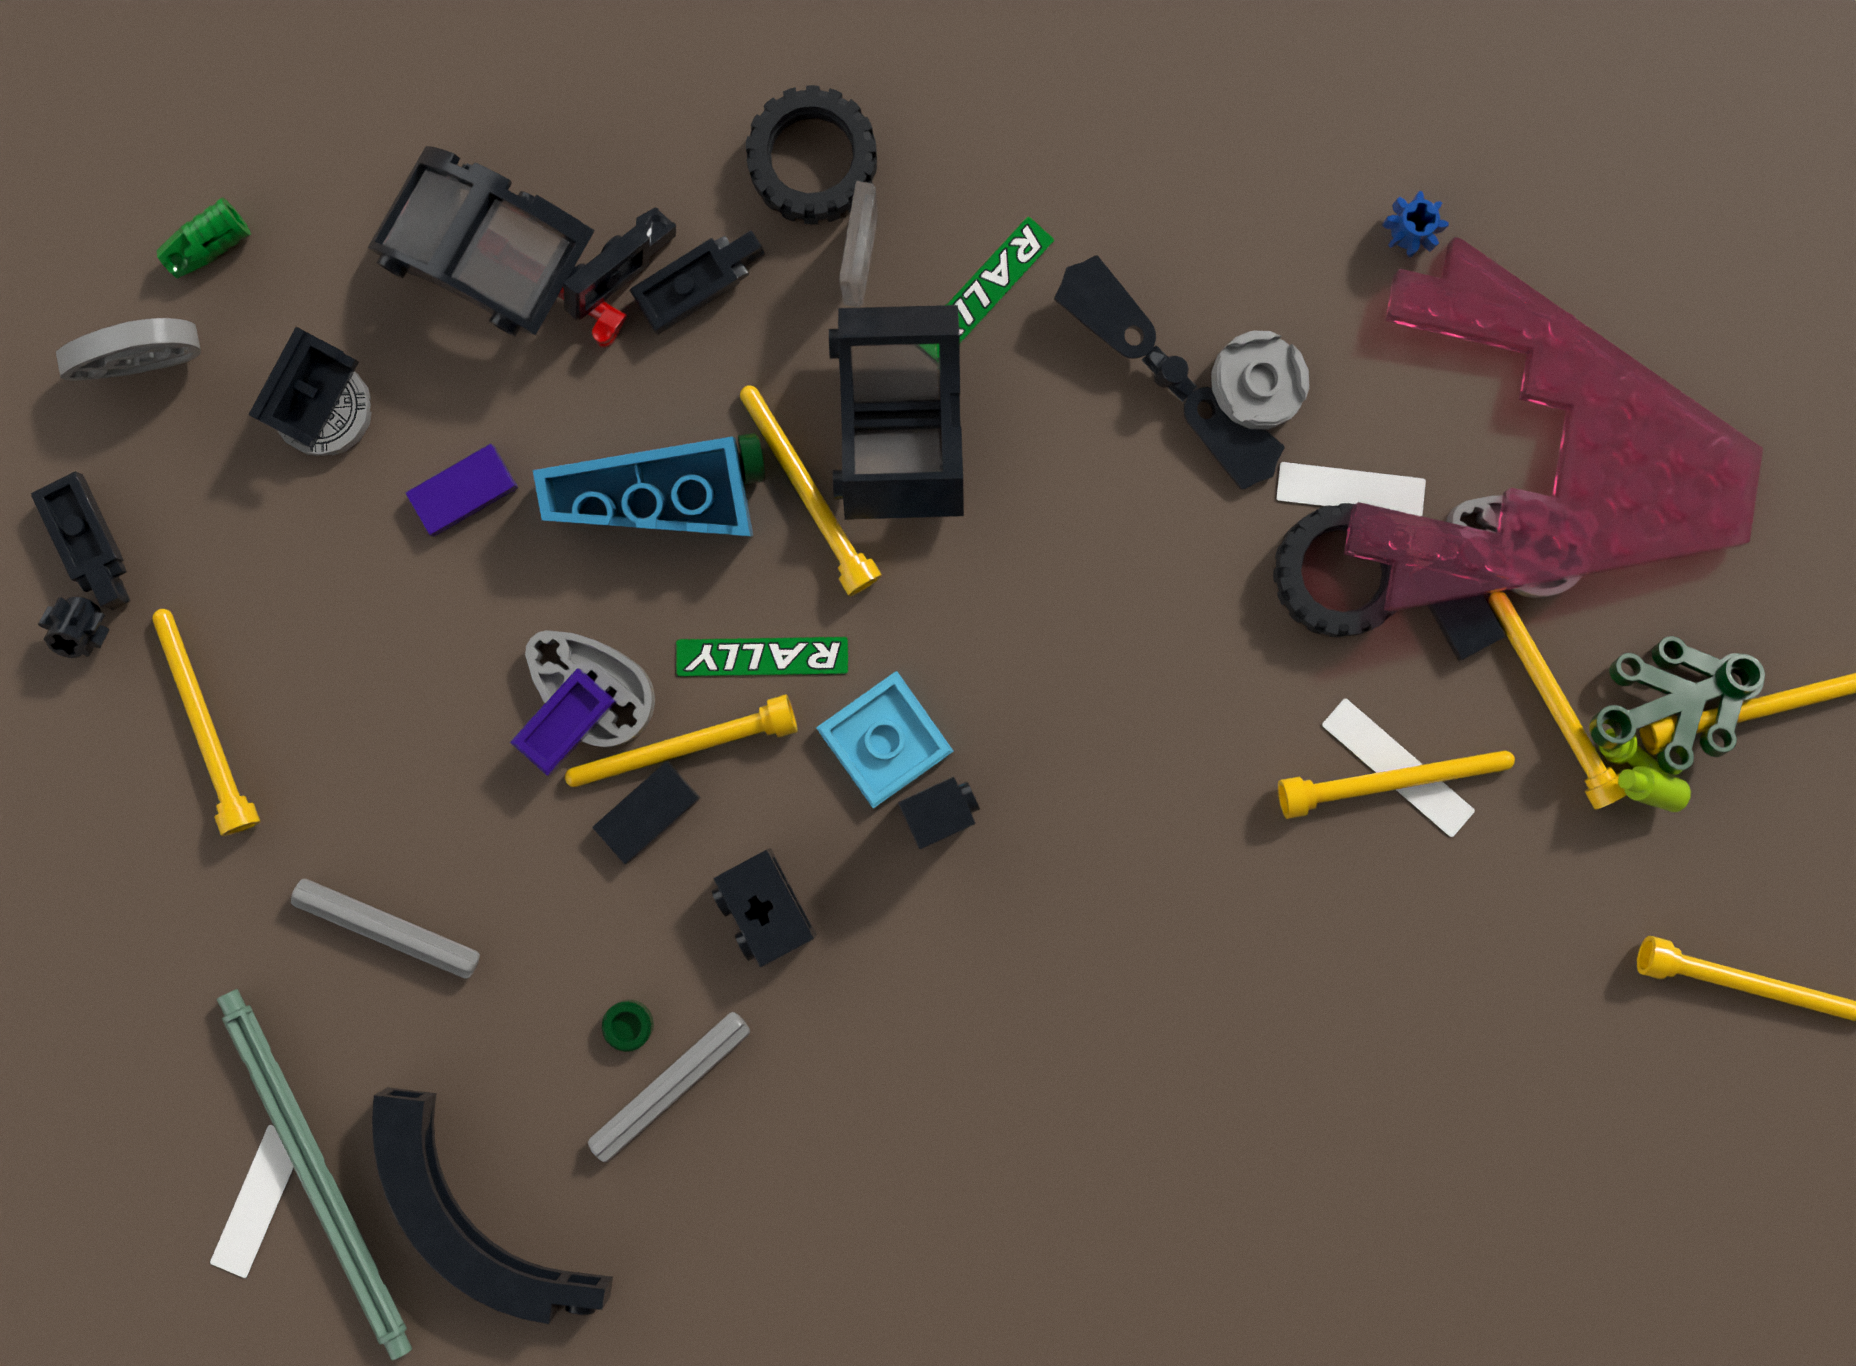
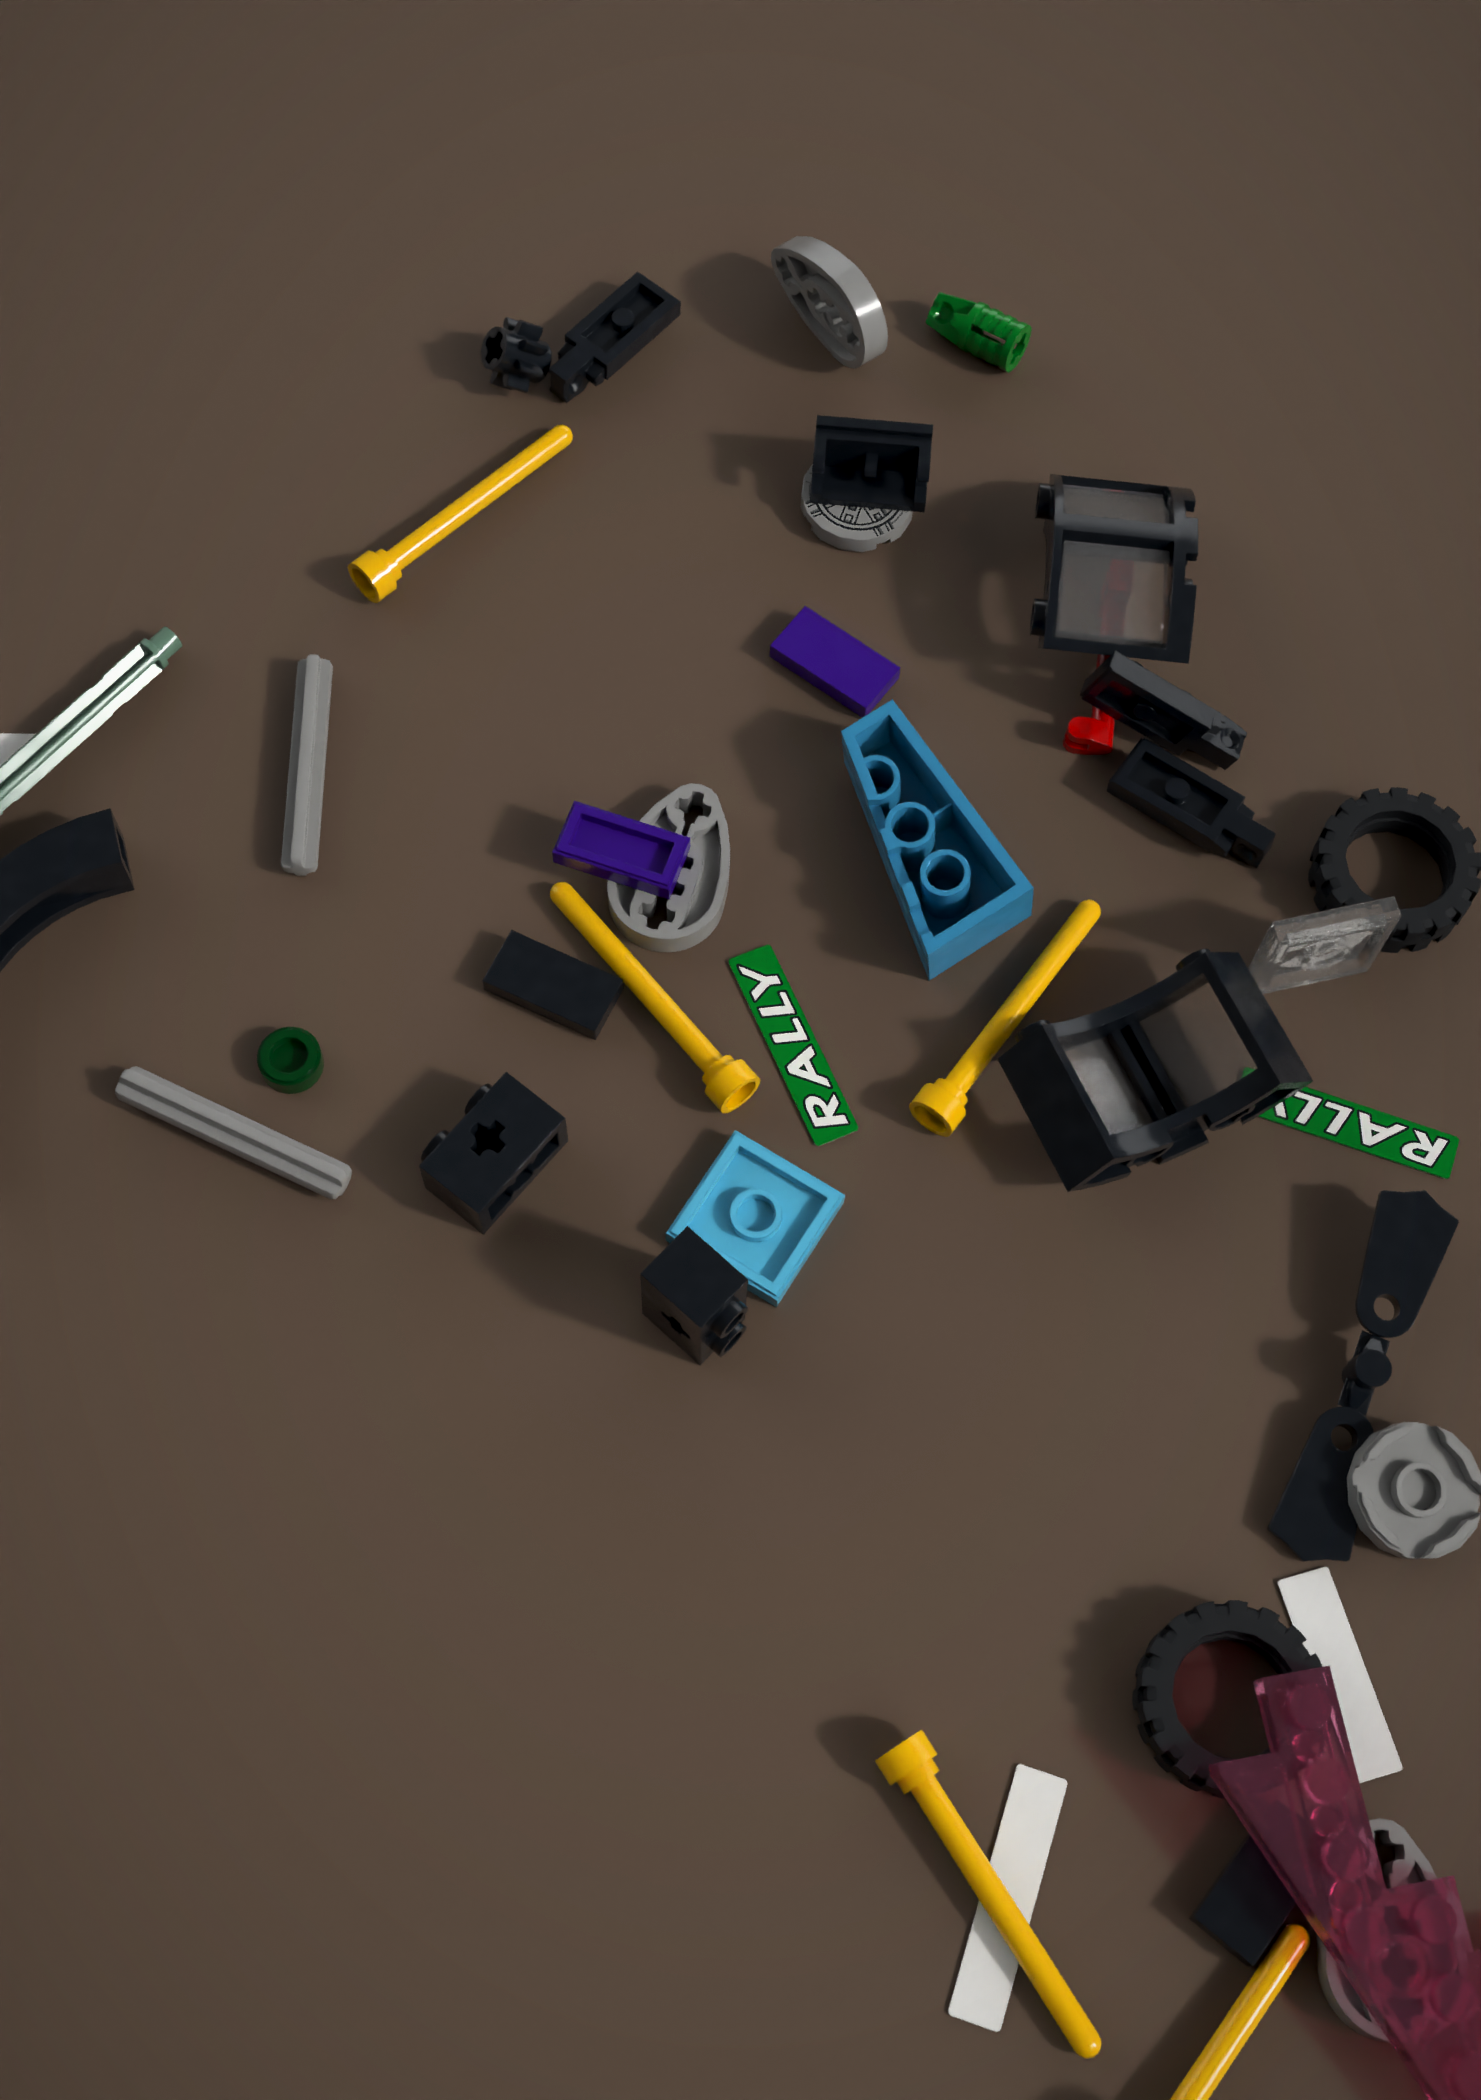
camera: 65 degrees right, 20 degrees down
(751, 458) = (1017, 935): dark green tile -> none

